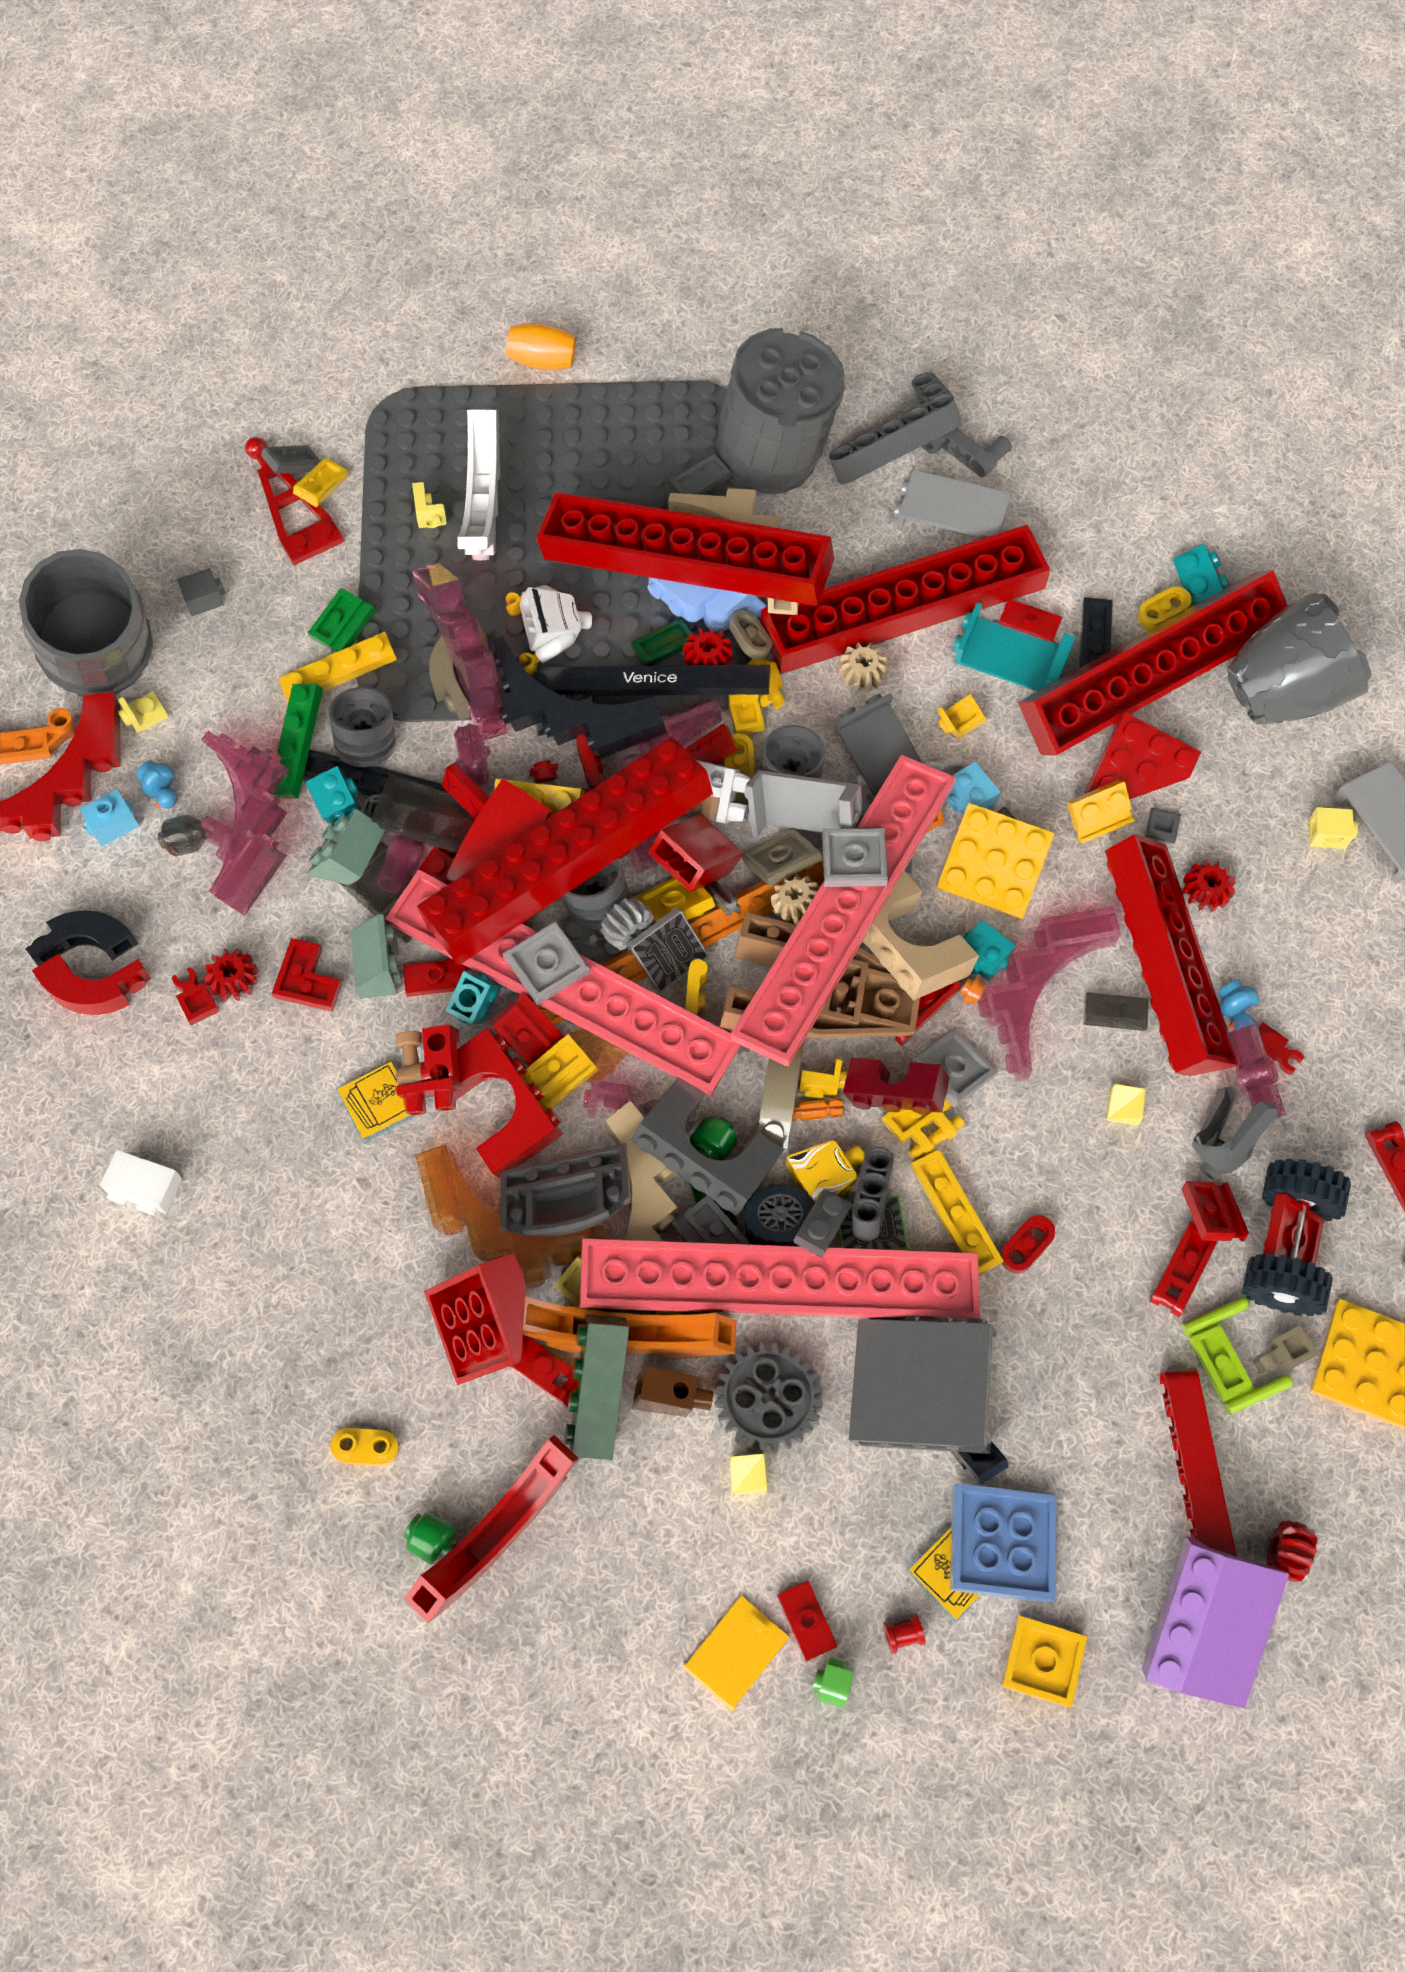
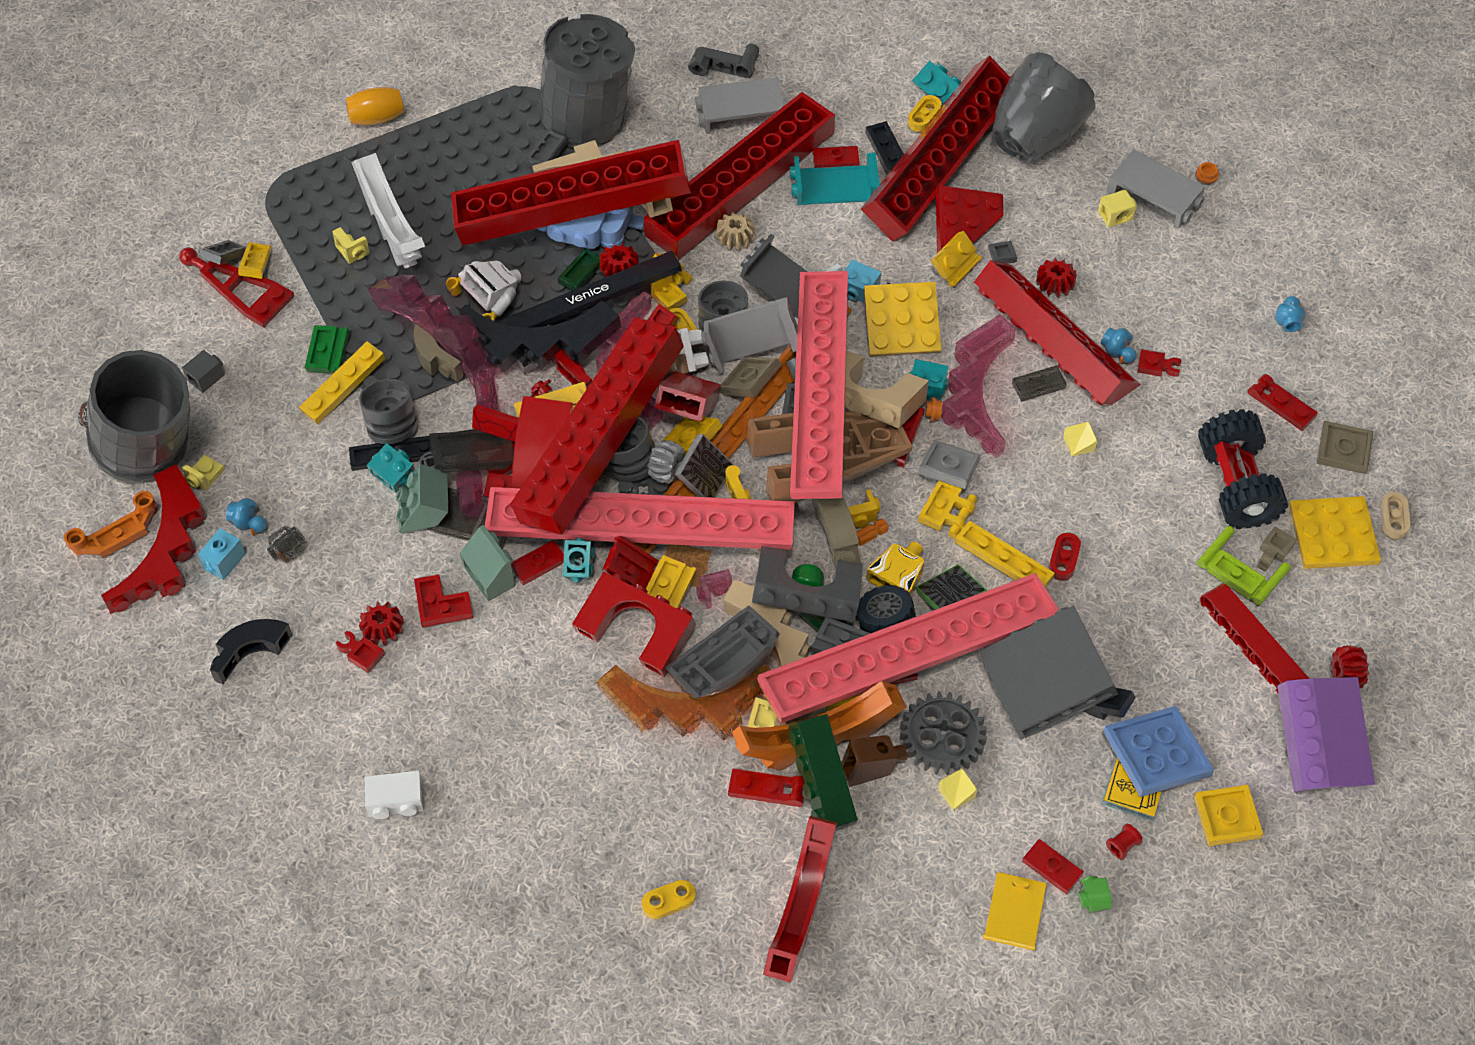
camera: 25 degrees left, 10 degrees down
(90, 996) = (272, 685): red arch -> none
(218, 835) = (320, 530): clear pink bracket -> none
(252, 851) = (353, 529): clear pink arch -> none
(297, 737) = (339, 443): green plate -> none
(374, 1102) = (543, 664): yellow tile -> none
(430, 1537) = (754, 933): green head -> none
(436, 1075) = (581, 622): red hips -> none
(481, 1317) = (713, 761): red slope -> none
(546, 963) = (623, 509): light grey tile -> none
(723, 898) = (729, 415): dark grey axle -> none
(750, 634) = (643, 239): dark tan plate -> none
(793, 898) = (777, 397): tan gear -> none
(822, 1223) = (919, 596): dark grey plate -> none
(854, 857) = (808, 347): light grey tile -> none
(872, 1194) = (941, 566): dark grey beam -> none
(920, 1091) = (937, 485): dark red arch -> none
(928, 421) = (693, 47): dark grey beam -> none
(961, 717) = (824, 236): yellow bracket -> none
(1183, 1270) = (1178, 525): red plate -> none
(1214, 1211) = (1178, 479): red plate -> none
(1237, 1150) = (1168, 439): dark grey piece -> none
(1255, 1069) = (1156, 381): clear pink piece -> none

